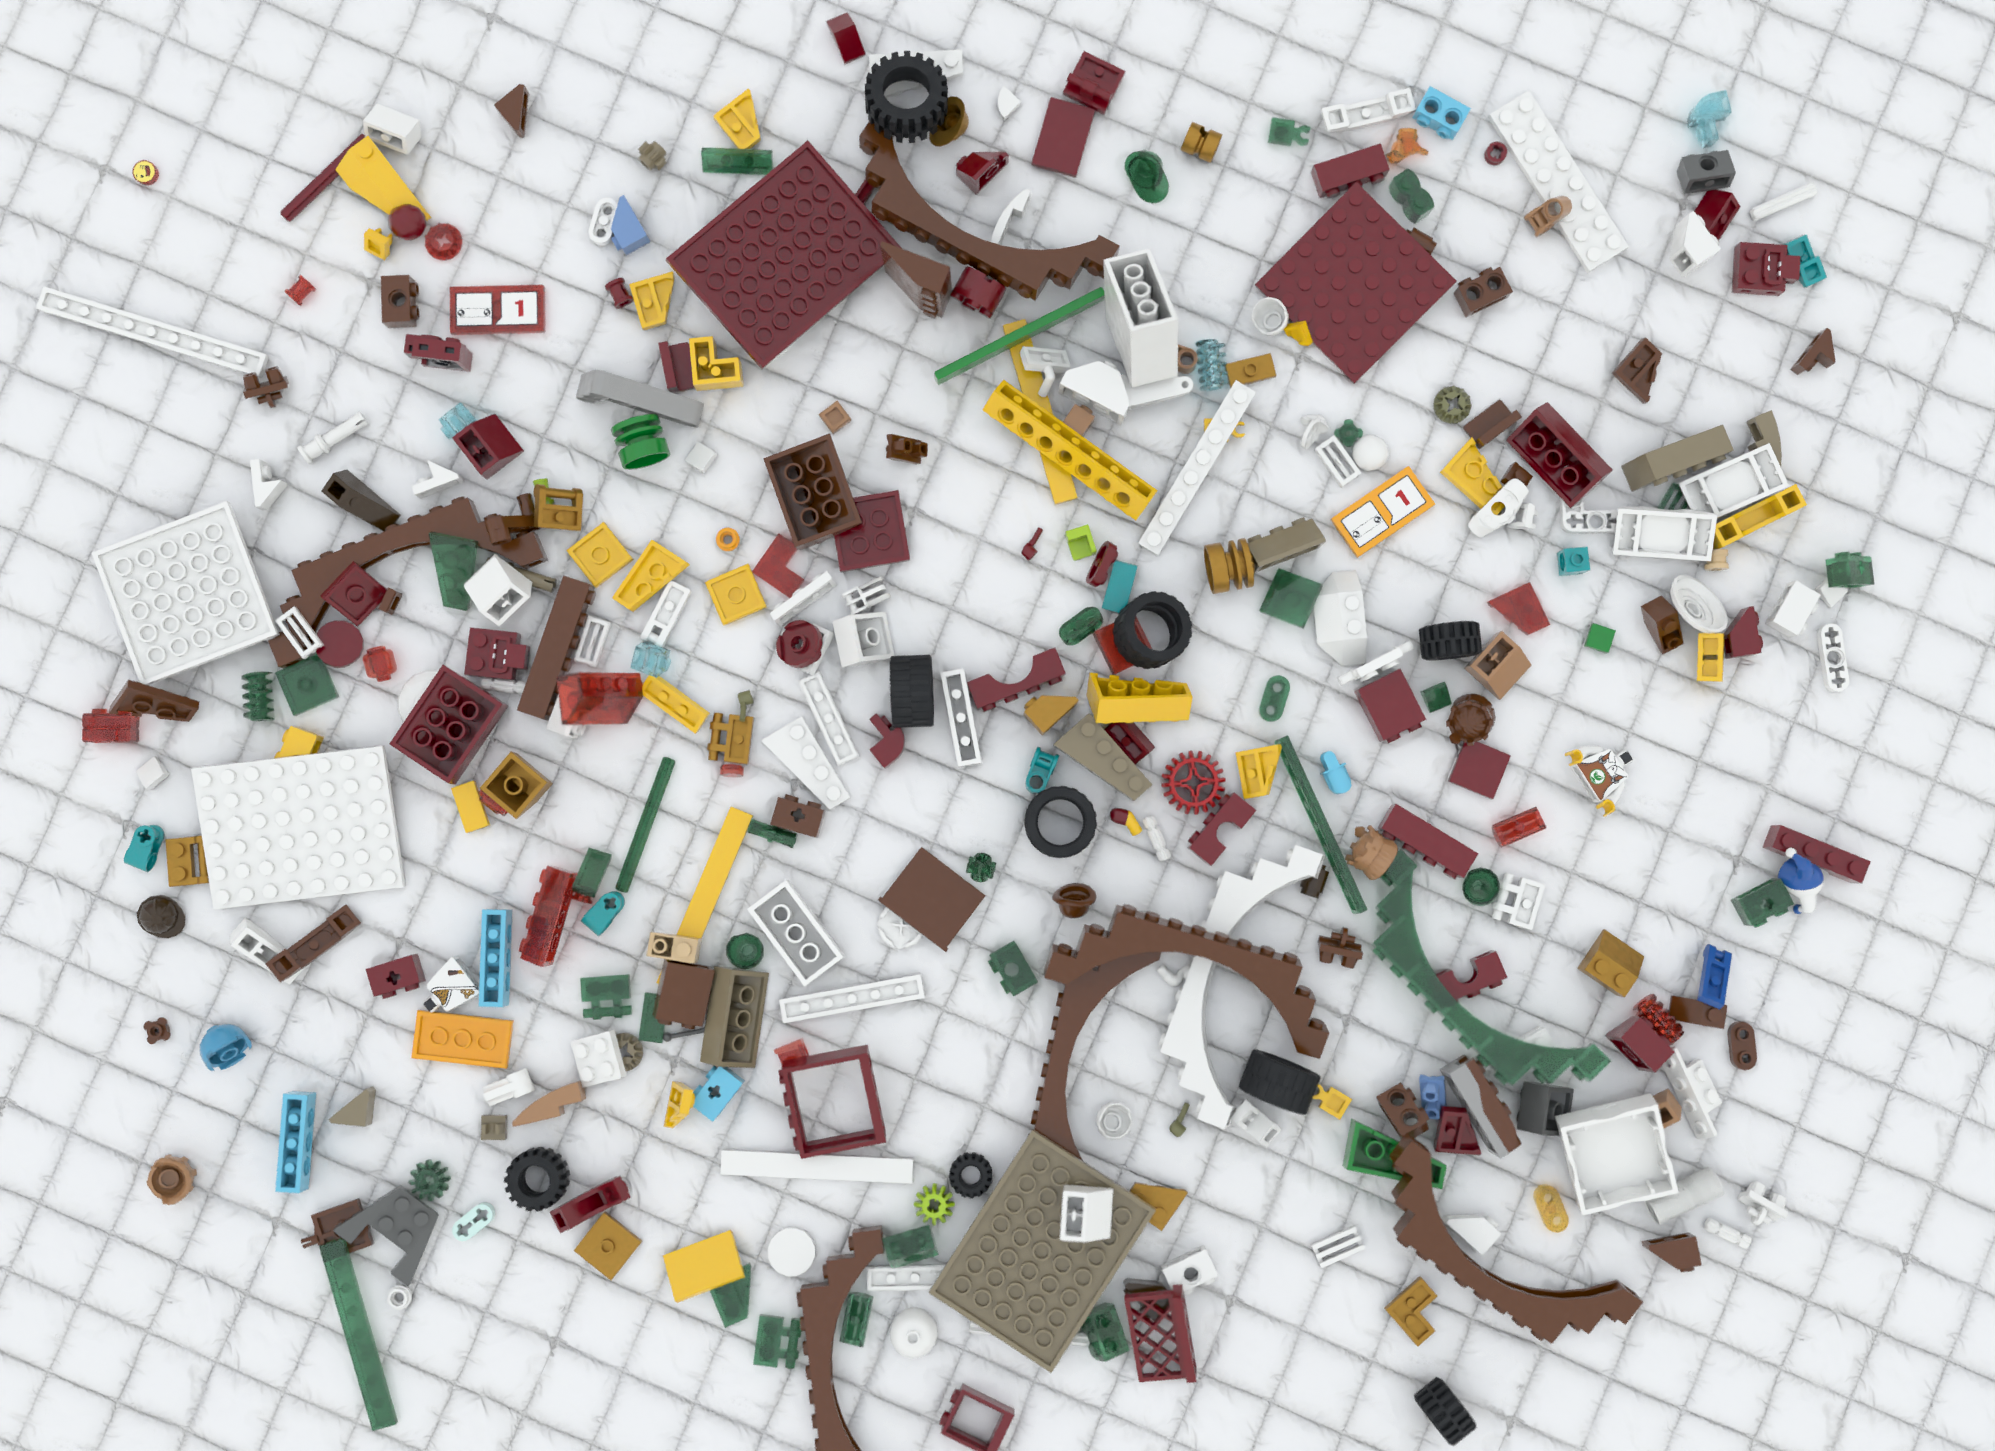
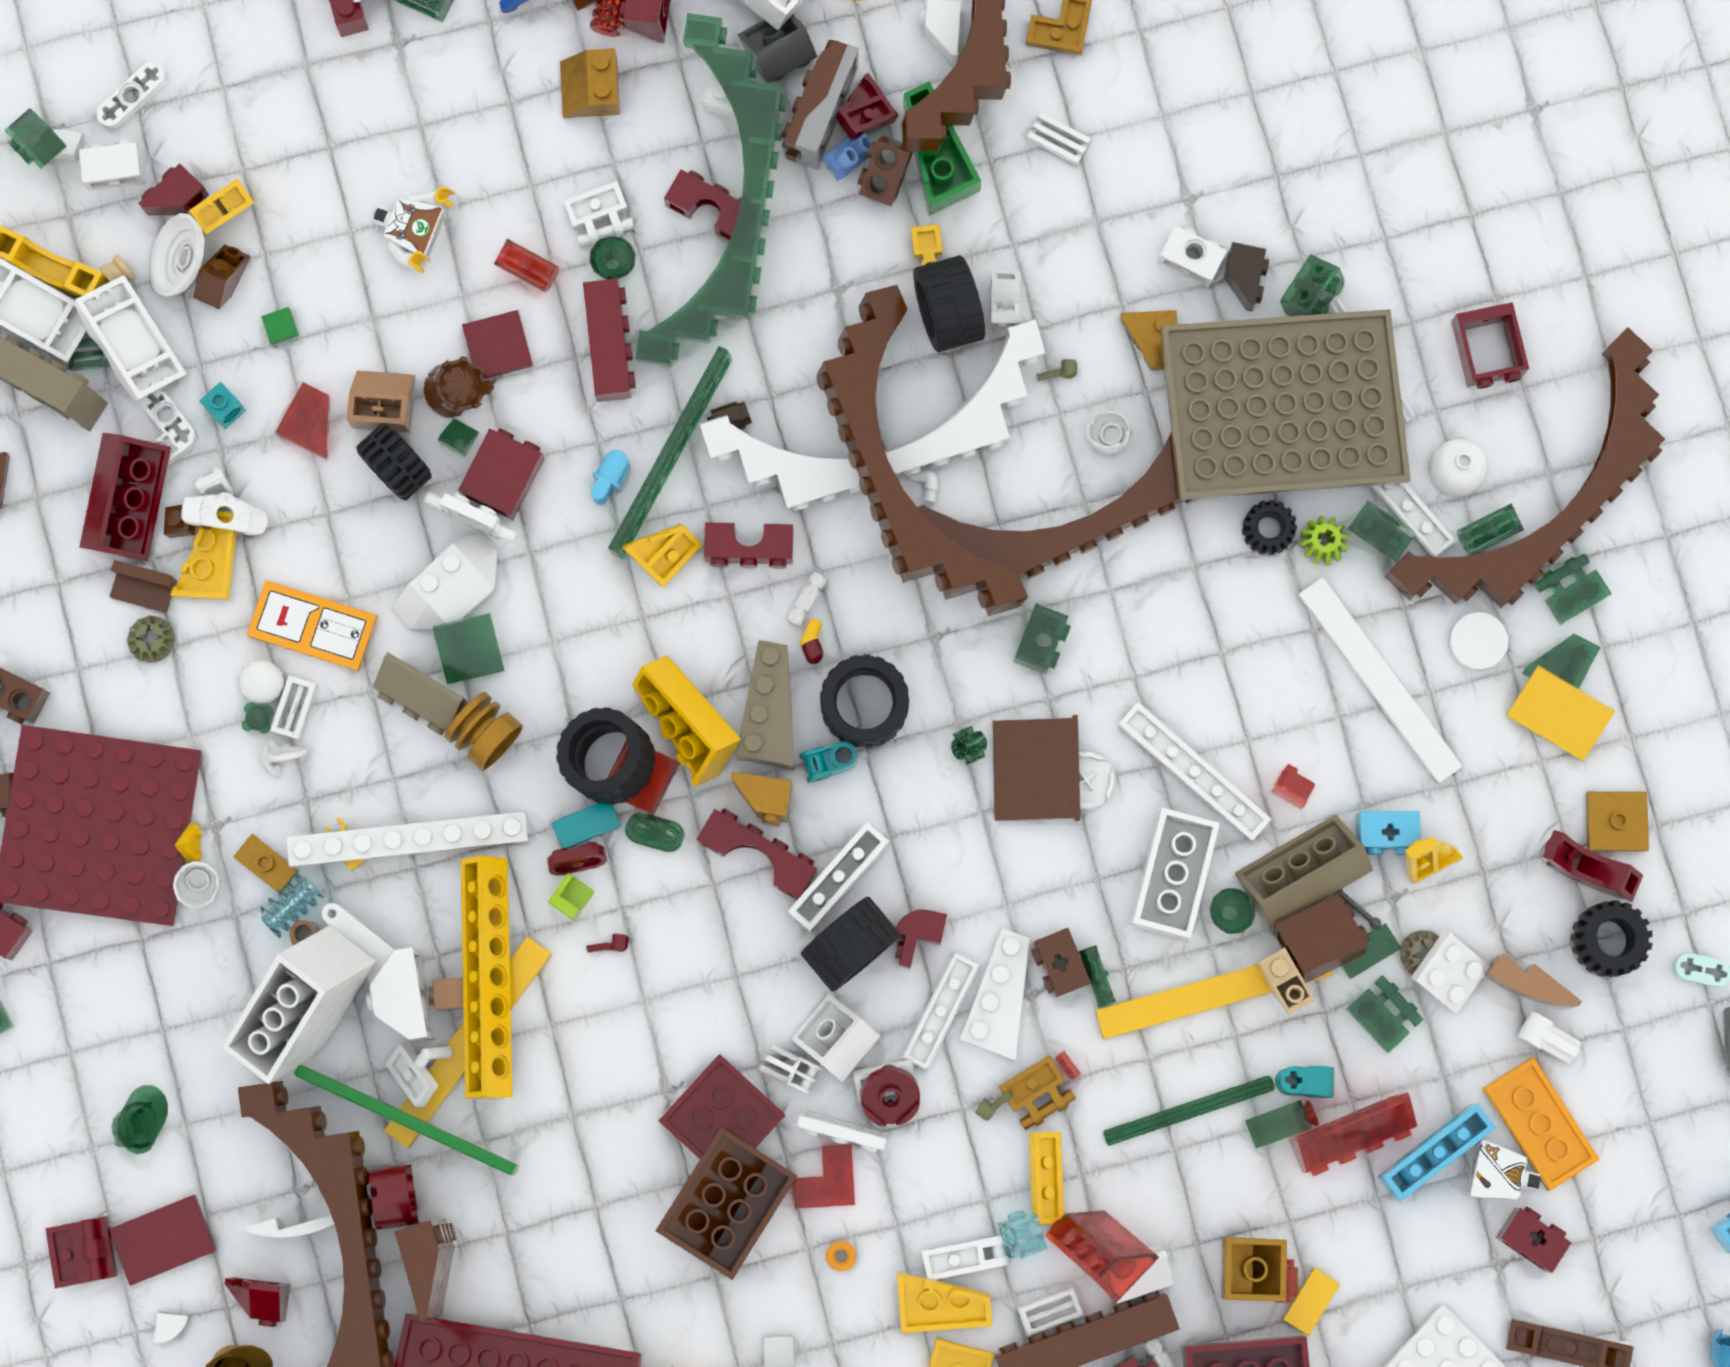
camera: 130 degrees left, 5 degrees down
(358, 1111) = (1693, 1169): dark tan slope -> none
(434, 1171) = (1687, 1043): clear green gear -> none
(493, 1127) = (1598, 1023): dark tan tile -> none
(735, 594) = (890, 1203): yellow tile -> none
(835, 417) = (632, 1246): medium nougat tile -> none
(840, 1142) = (1336, 672): dark red window -> none
(905, 449) = (610, 1145): reddish brown hips -> none
(1074, 899) = (928, 630): reddish brown hat -> none
(1086, 1213) = (1218, 386): white slope -> none
(1130, 740) = (731, 696): dark red slope -> none
(1180, 1328) = (1251, 223): dark red fence -> none
(1201, 142) = (64, 1091): pearl gold wheel -> none
(1213, 780) = (715, 614): red gear -> none
(1274, 699) = (580, 587): clear green plate -> none
(1340, 944) = (772, 347): reddish brown hips -> none
(1371, 852) = (660, 383): medium nougat hair -> none

